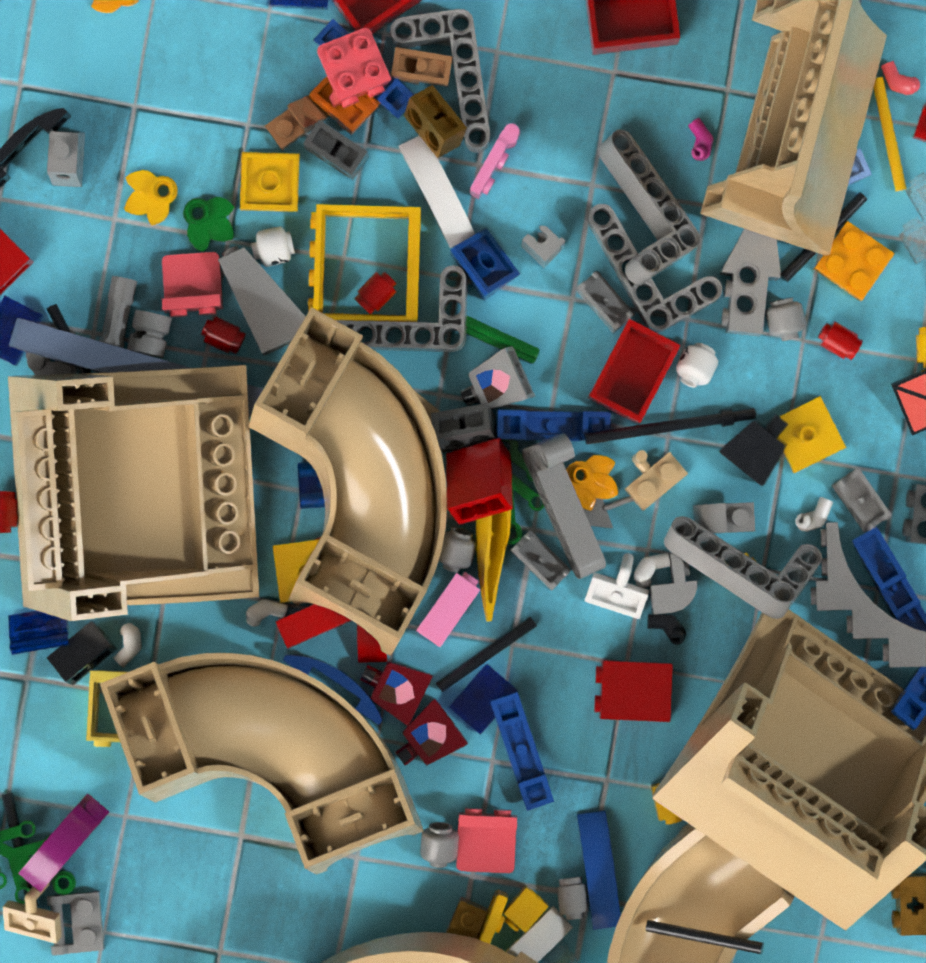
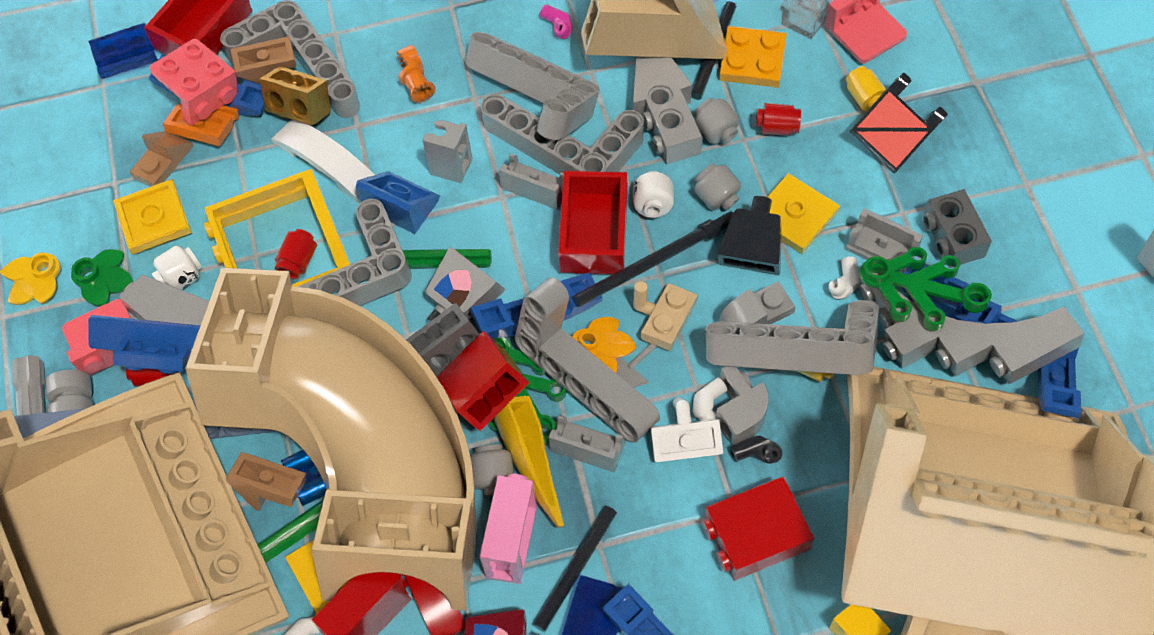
camera: 20 degrees left, 25 degrees down
(233, 331) = (143, 342): none -> blue bracket
(278, 480) = (262, 480): none -> medium nougat slope
(289, 526) = (290, 533): none -> green axle
(335, 150) = (207, 157): dark grey brick -> none
(495, 159) = (369, 109): bright pink hinge -> none
(546, 144) = (413, 75): none -> orange connector
(754, 383) = (717, 187): none -> light grey head
(861, 560) = (920, 284): none -> green plant

